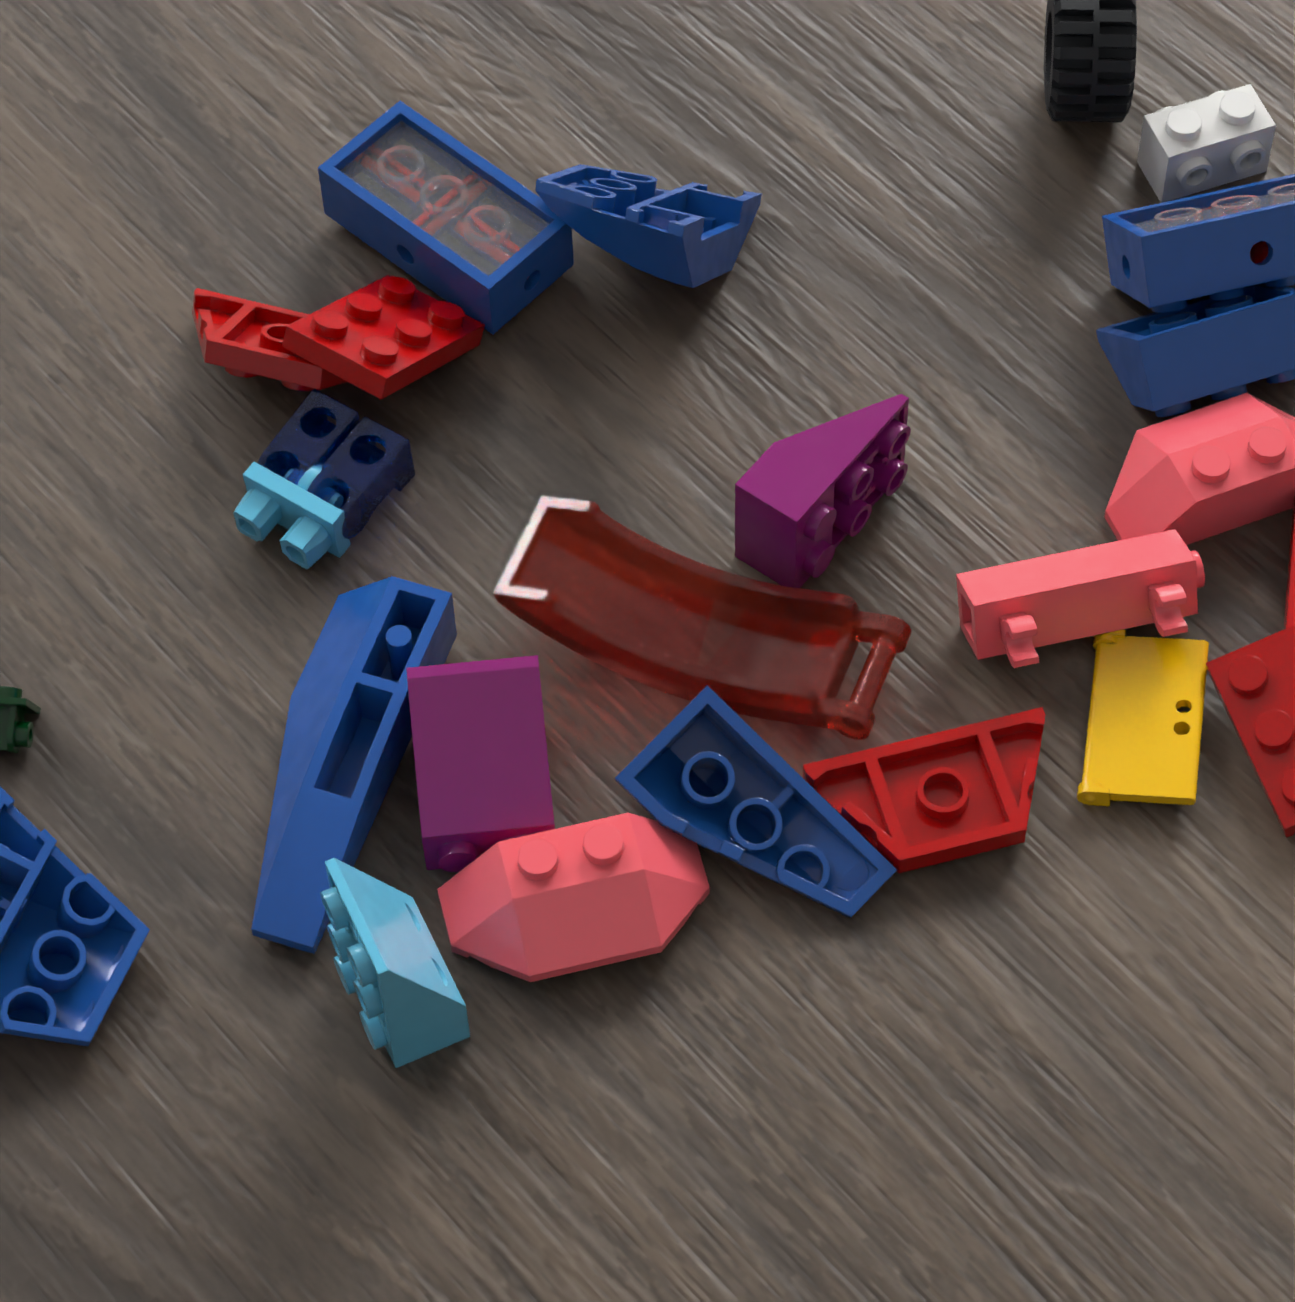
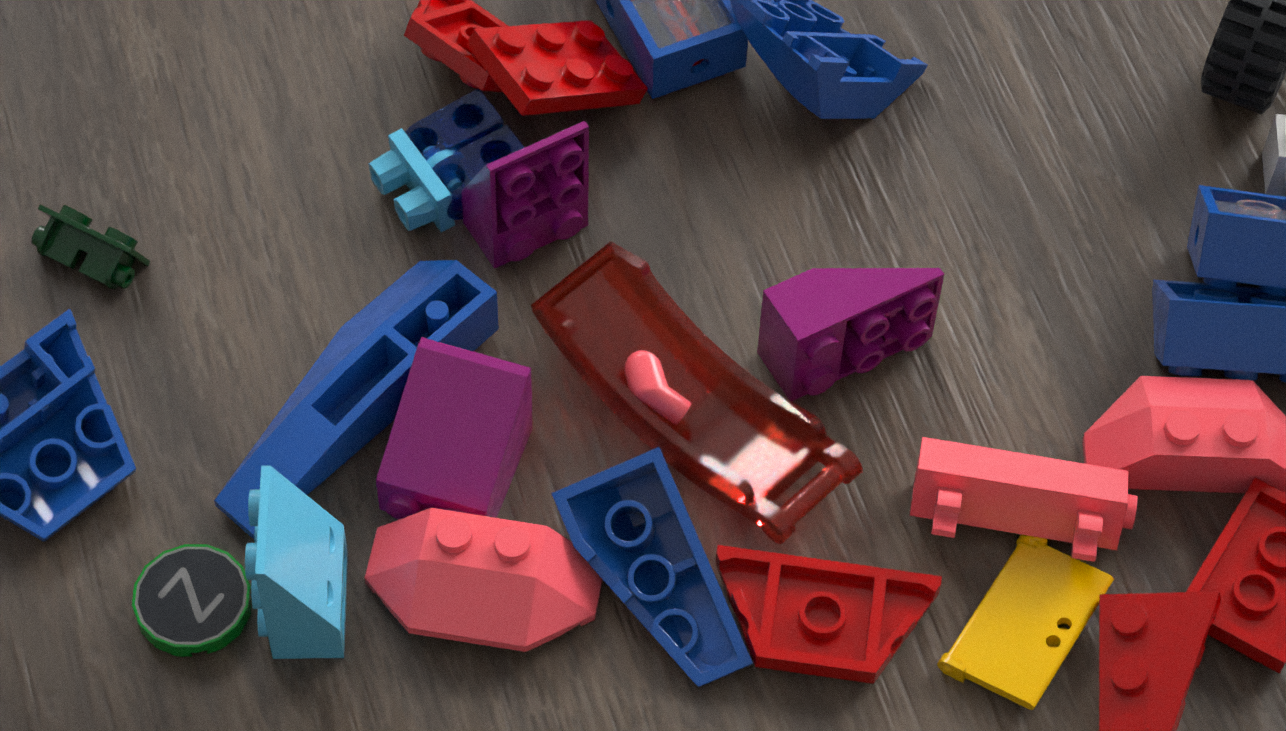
camera: 20 degrees right, 0 degrees up
(280, 1041) = (192, 600): none -> black tile
(430, 485) = (530, 197): none -> magenta slope
(650, 627) = (650, 386): none -> coral arm

